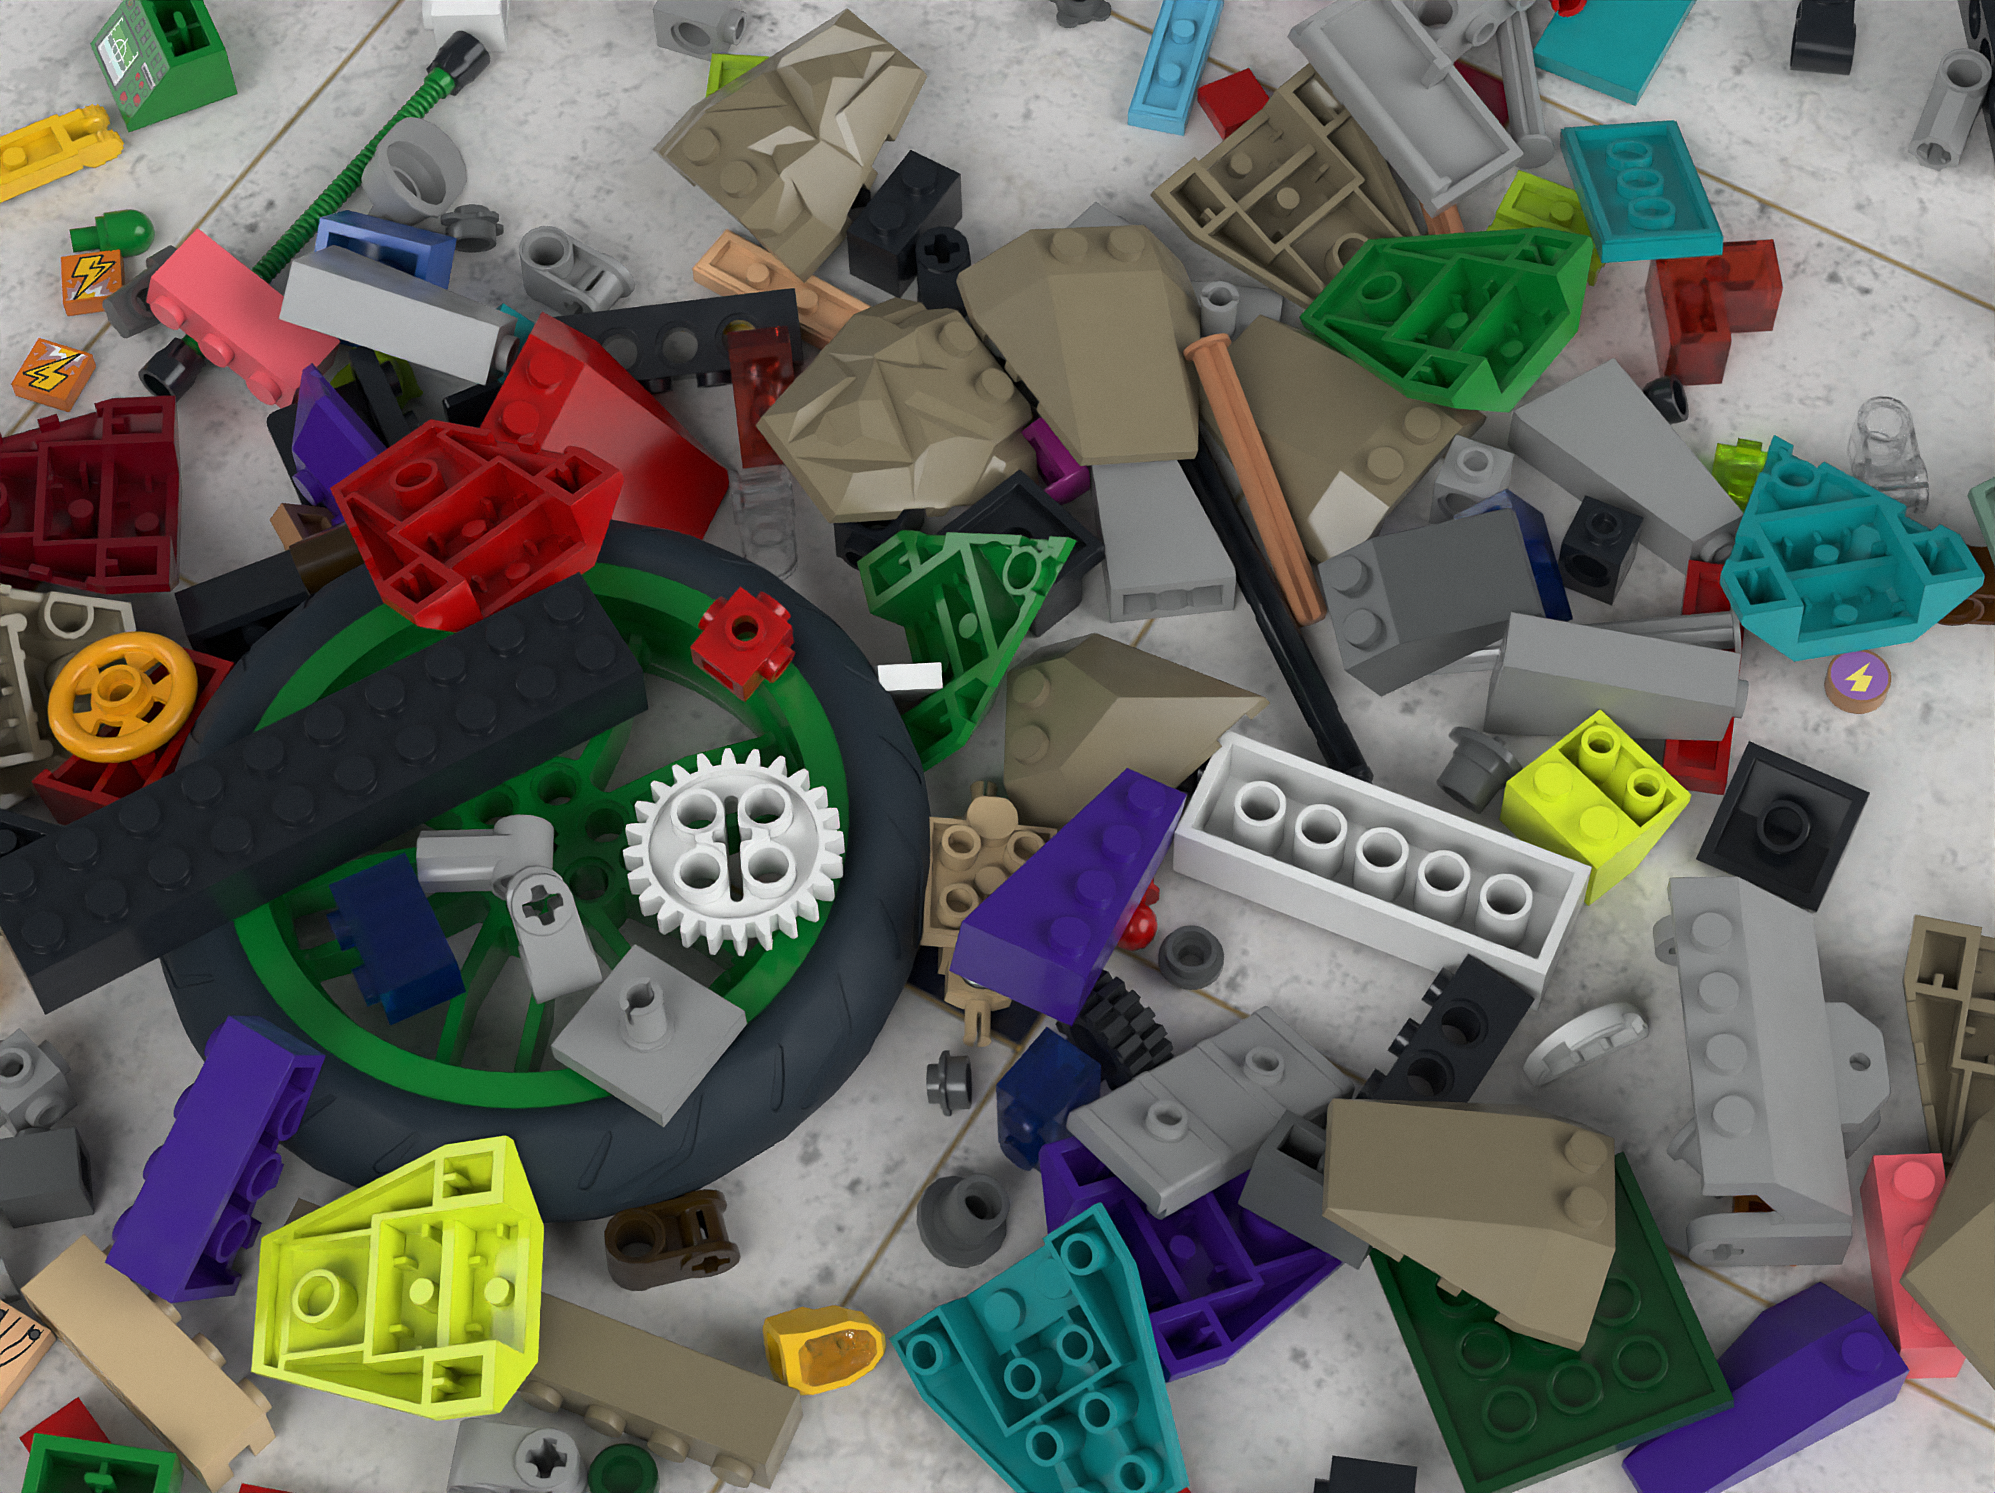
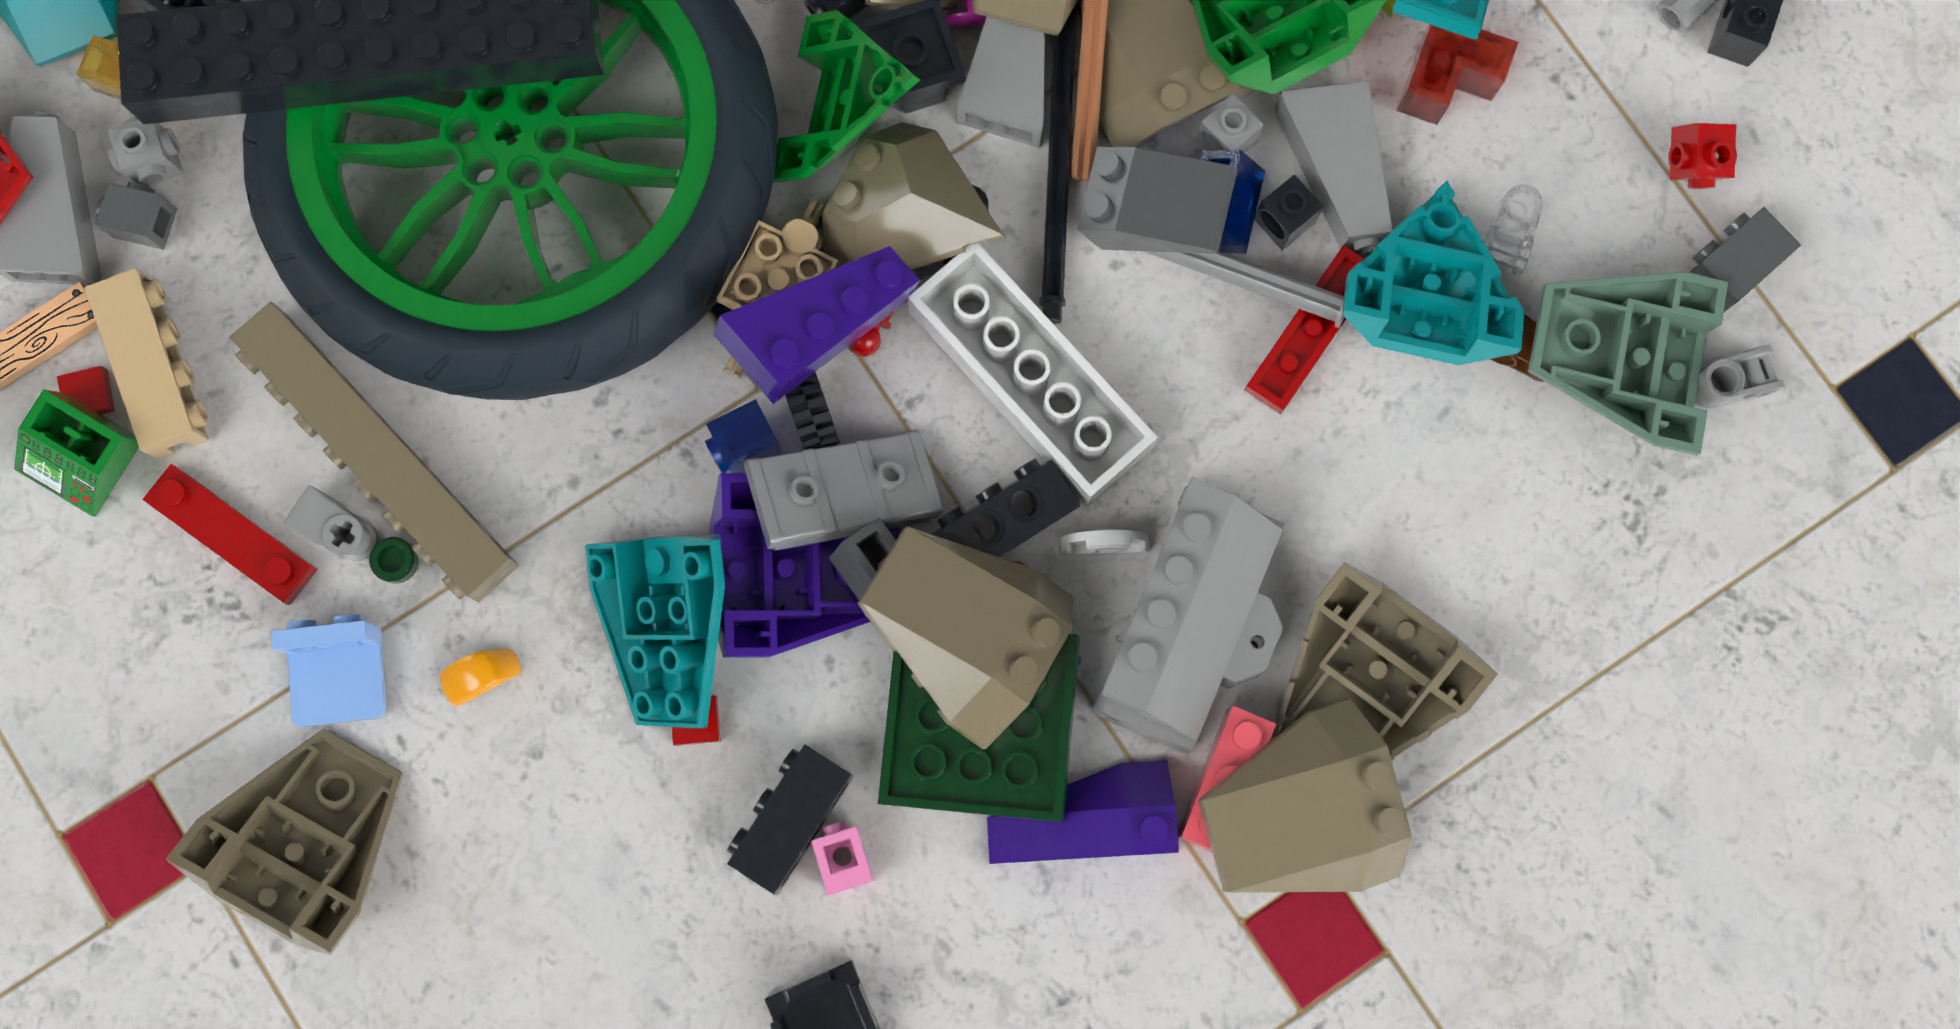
camera: 20 degrees right, 20 degrees up
(216, 1163) = (213, 266): dark purple wedge -> none
(396, 939) = (368, 170): clear blue brick -> none
(410, 1287) = (300, 399): neon yellow wedge -> none
(484, 856) = (460, 144): light grey piece -> none
(552, 944) = (460, 217): light grey piece -> none
(649, 1035) = (497, 302): light grey tile -> none
(671, 856) = (565, 190): white gear -> none
(675, 1240) = (493, 424): dark brown piece -> none
(739, 663) = (660, 54): red brick -> none
(821, 1347) = (542, 534): yellow rock -> none
(910, 681) = (789, 114): white tile -> none
(950, 1083) = (702, 395): dark grey plate -> none
(963, 1219) = (665, 487): dark grey piece -> none
(1196, 942) = (886, 364): dark grey plate -> none
(1477, 768) = (1130, 331): dark grey piece -> none
(1594, 802) = (1190, 388): neon yellow slope -> none
(1653, 688) = (1241, 315): light grey slope -> none
(1668, 397) = (1392, 122): black hinge -> none
(1738, 469) = (1409, 194): clear neon green tile -> none
(1783, 826) = (1304, 455): black slope -> none
(1857, 681) = (1409, 375): tile -> none

